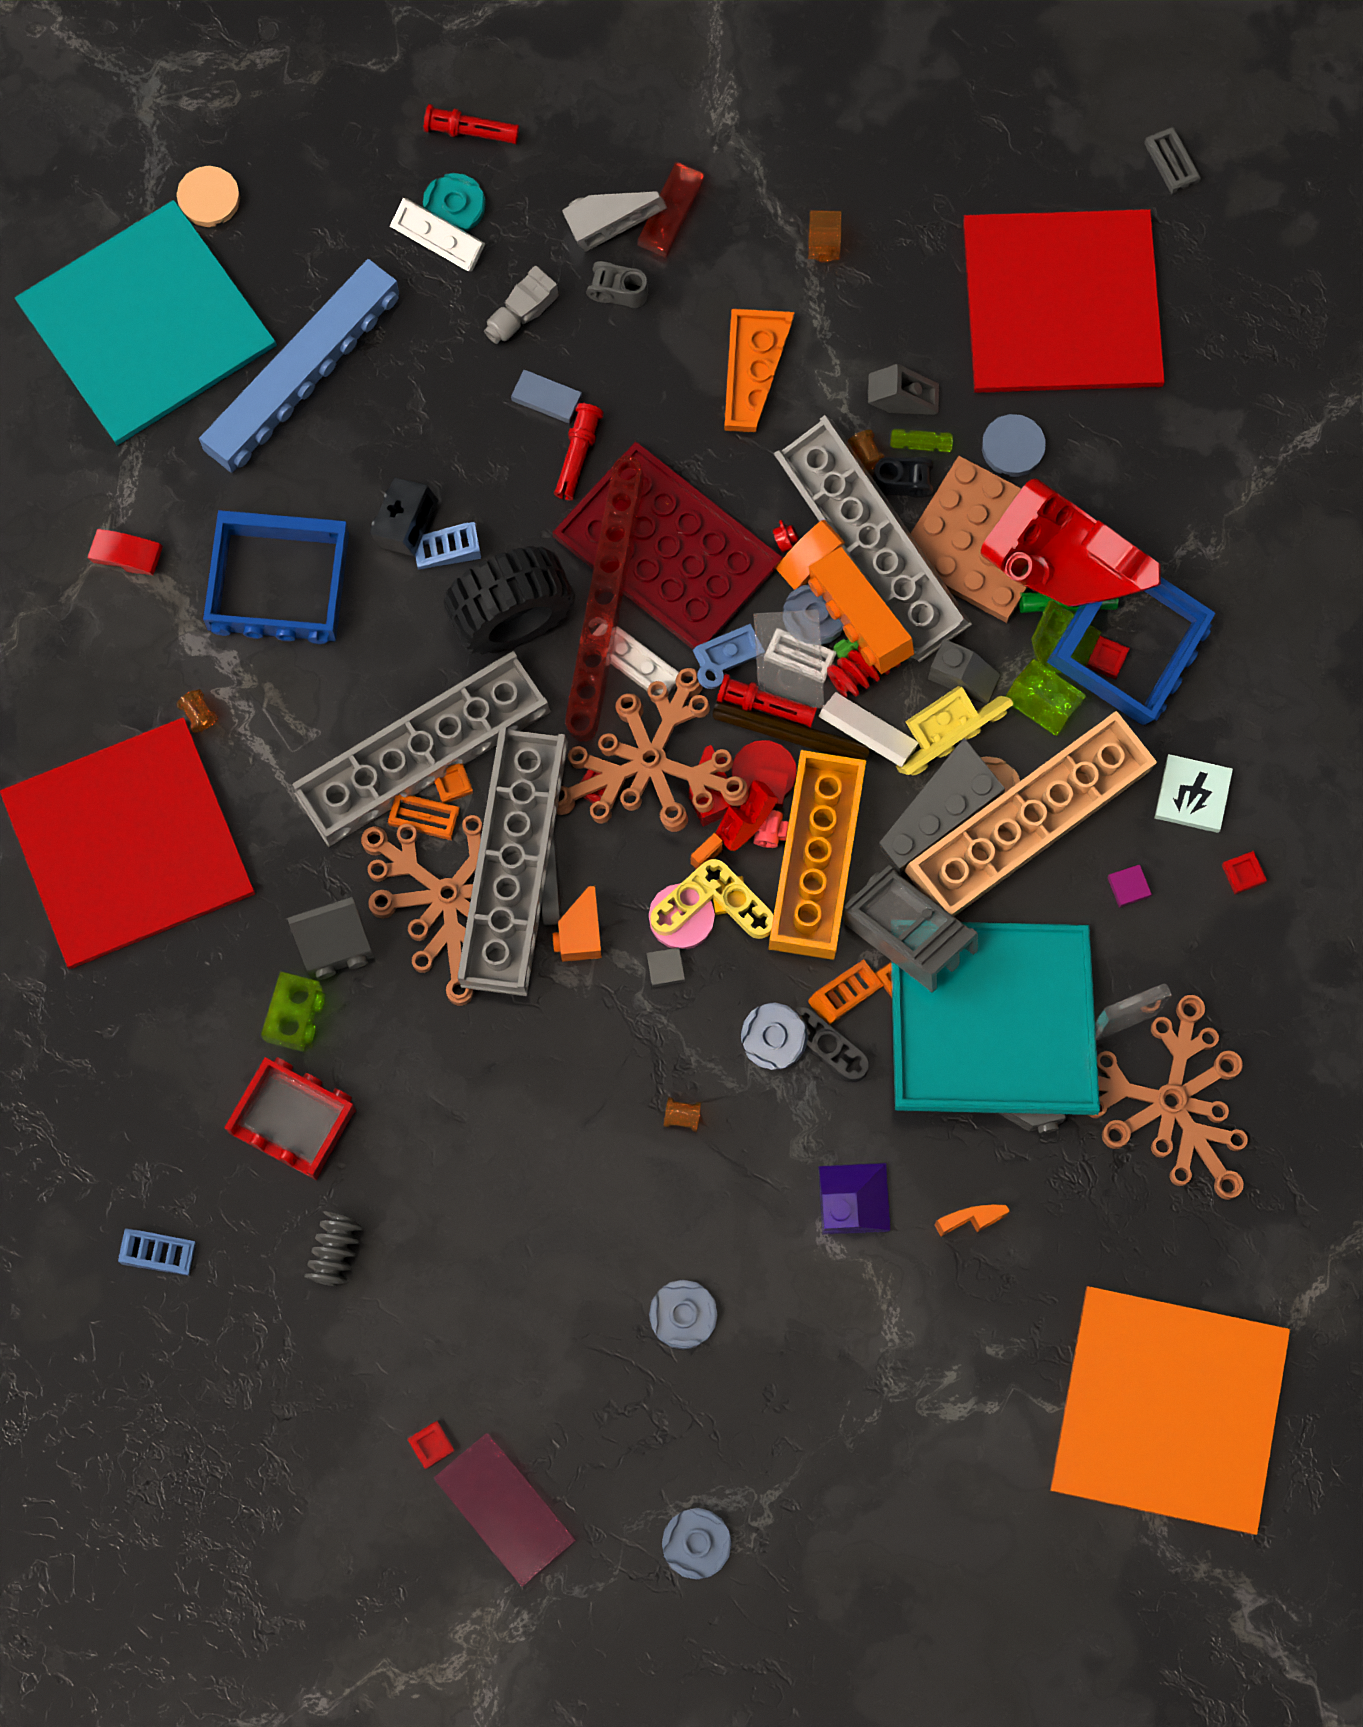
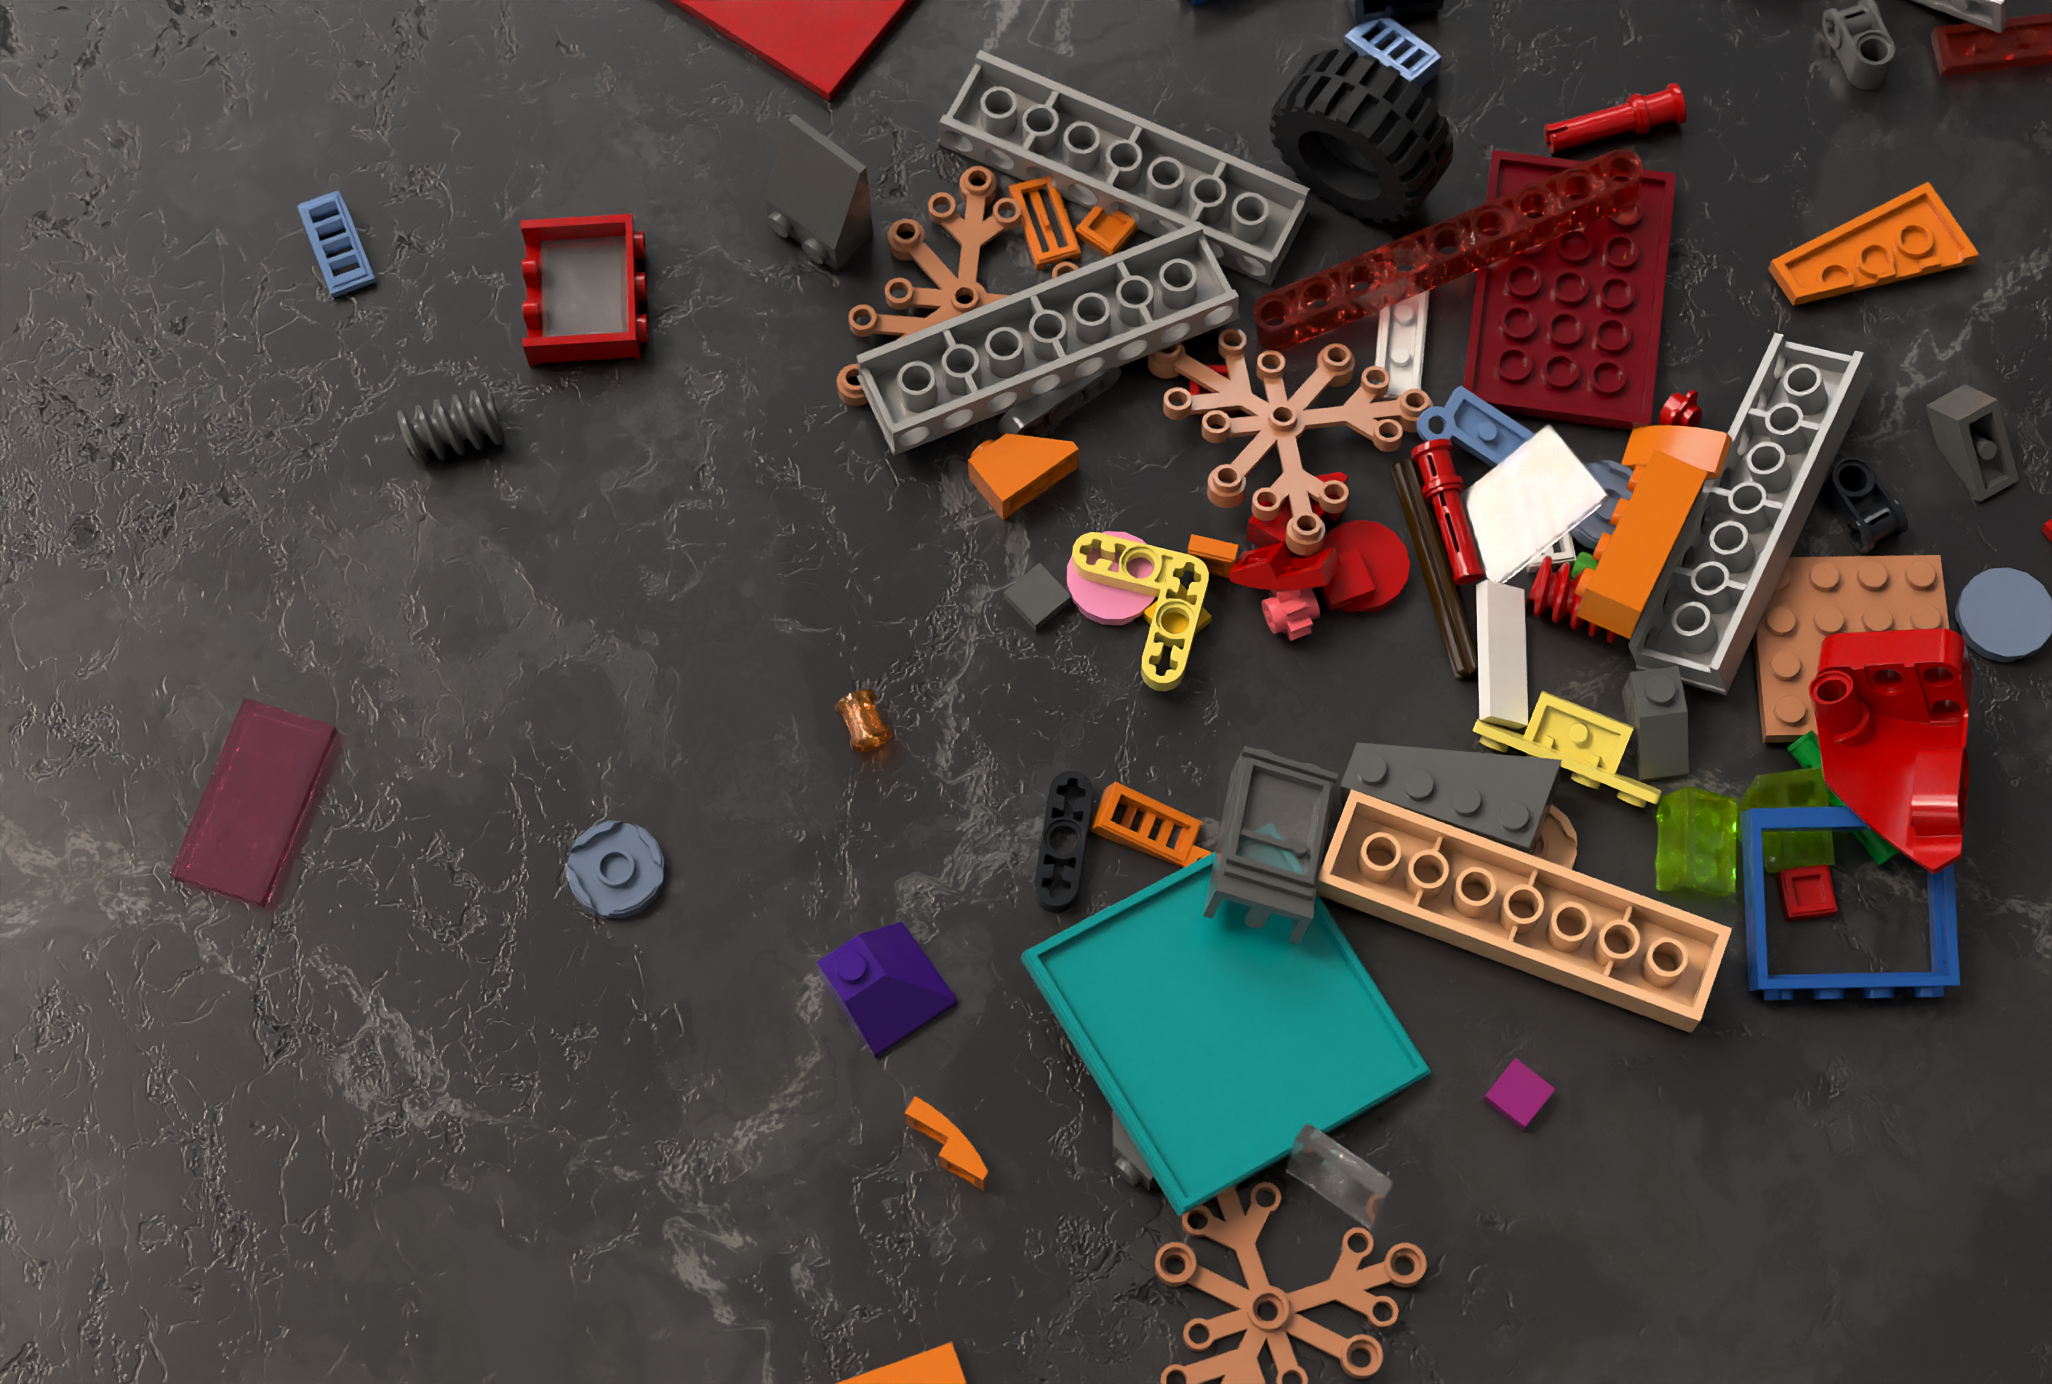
camera: 60 degrees right, 5 degrees down
(284, 1010) = (706, 206): clear neon green brick -> none
(431, 1445) = (285, 675): red tile -> none
(546, 396) = (1661, 47): sand blue tile -> none
(696, 1543) = (339, 1050): sand blue tile -> none
(774, 1036) = (1031, 770): tile -> none
(817, 855) = (1294, 682): light orange brick -> none
(866, 448) = (1866, 437): clear orange bush -> none
(921, 440) = (1928, 501): clear neon green axle -> none
(1193, 793) = (1700, 1105): light aqua tile -> none
(1244, 872) = (1638, 1232): red tile -> none

